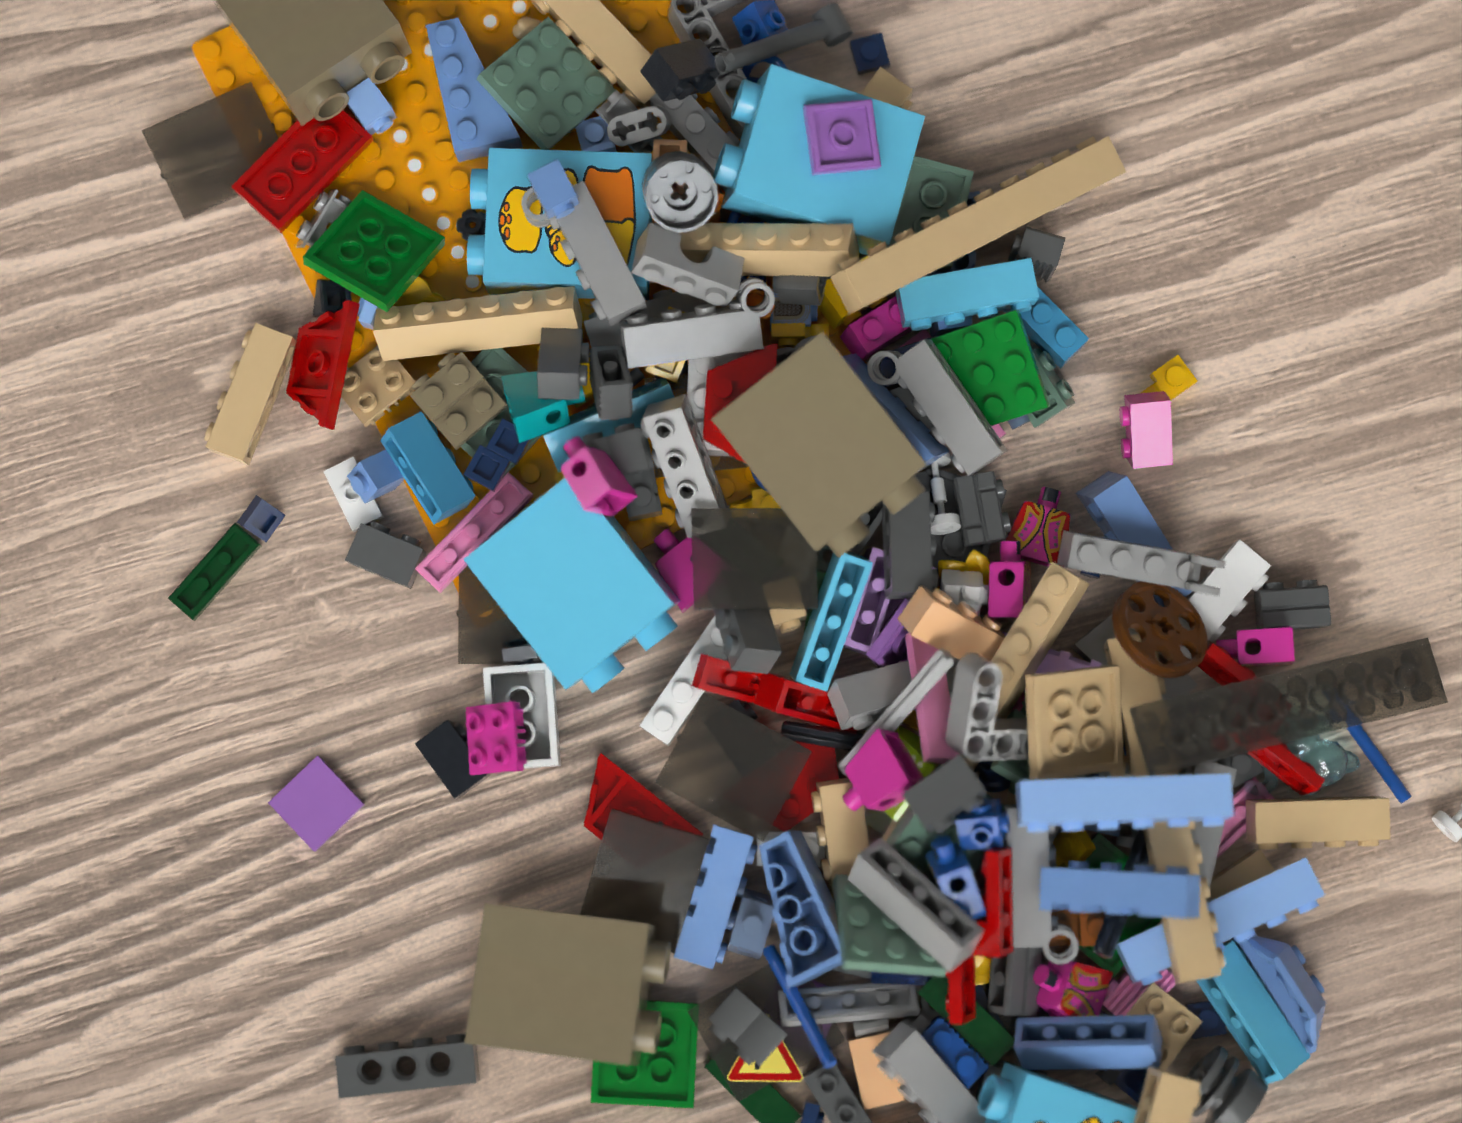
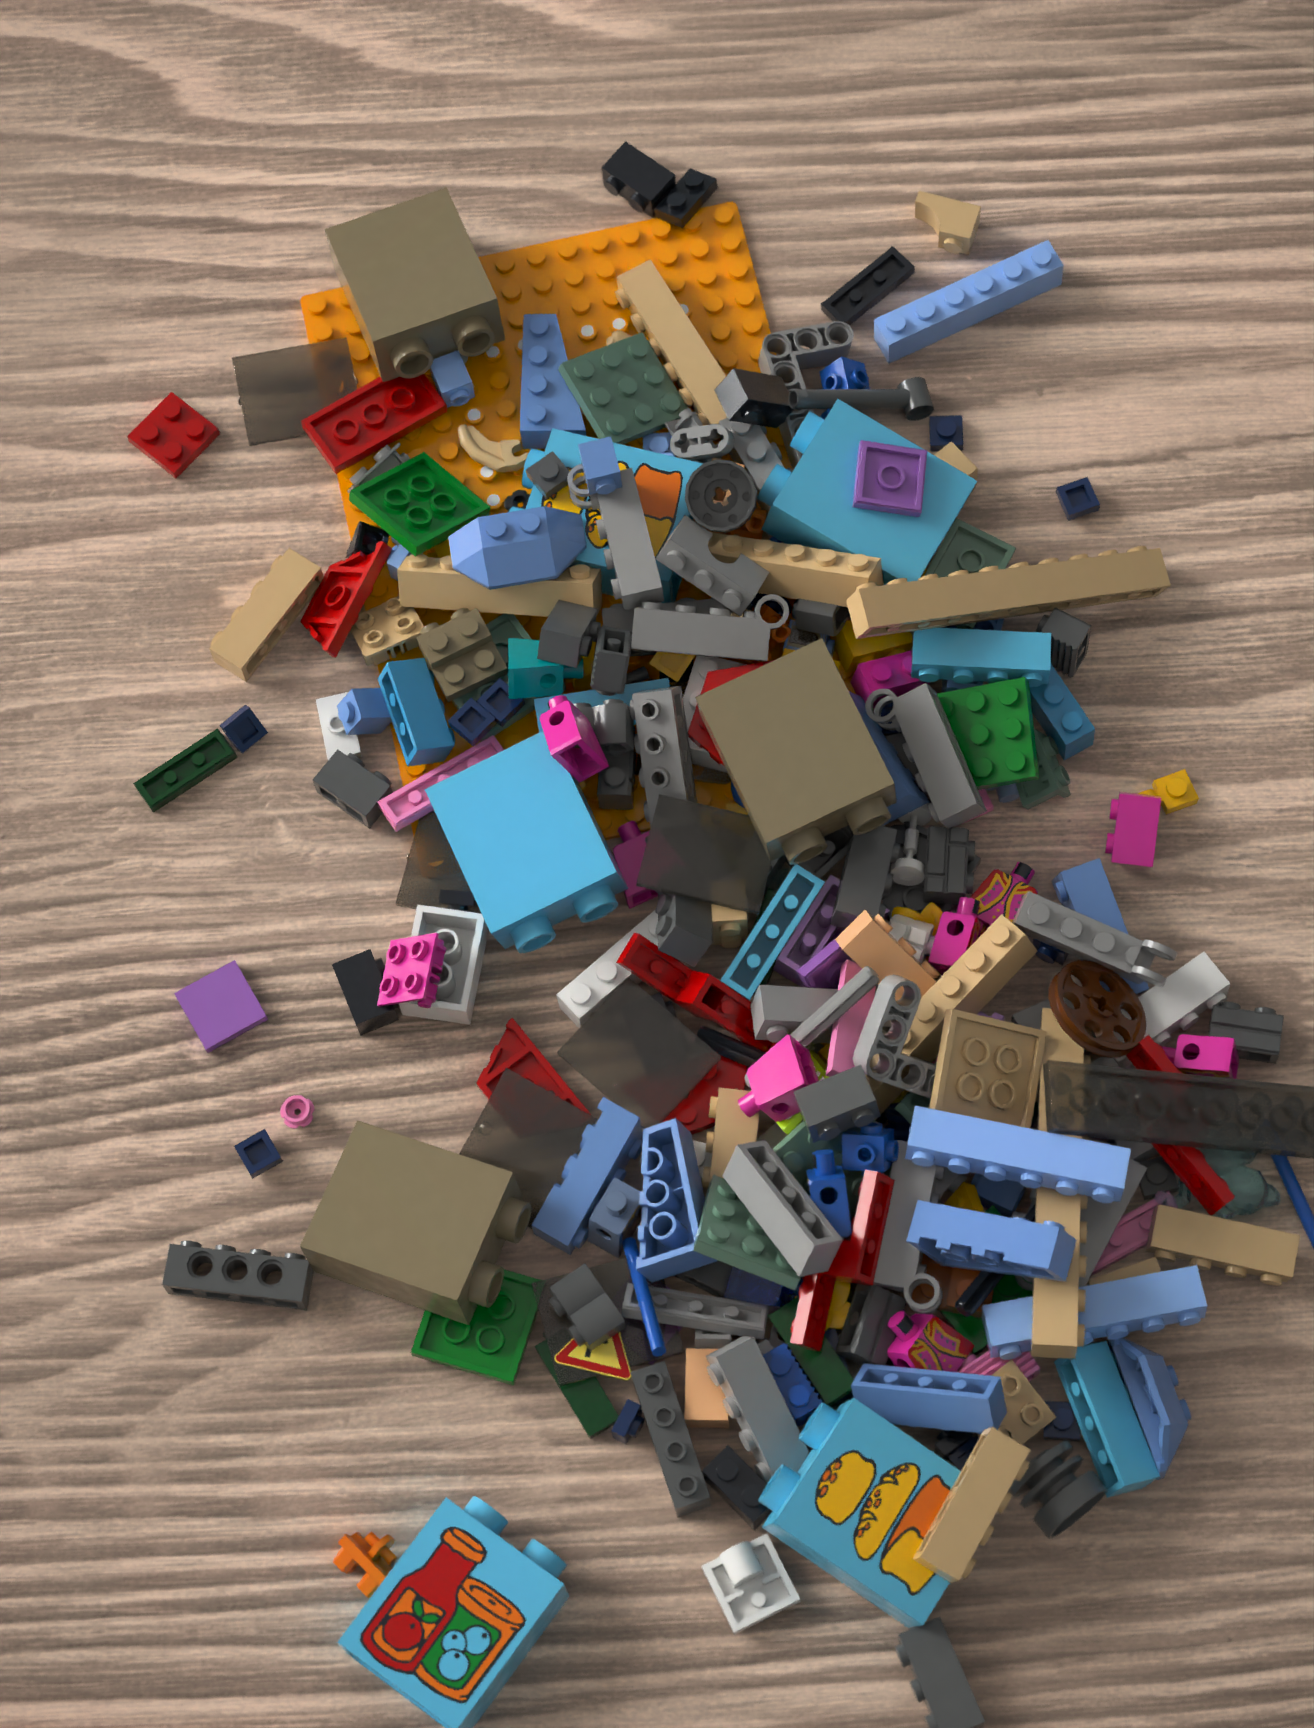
camera: 20 degrees right, 15 degrees down
(104, 222) = (173, 435): none -> red plate
(393, 942) = (258, 1153): none -> dark blue plate
(428, 893) = (288, 1111): none -> bright pink plate
(430, 175) = (490, 453): none -> tan piece
(489, 287) = (517, 546): none -> medium blue wedge
(499, 200) = (548, 475): none -> dark grey plate
(1014, 96) = (1077, 498): none -> dark blue plate

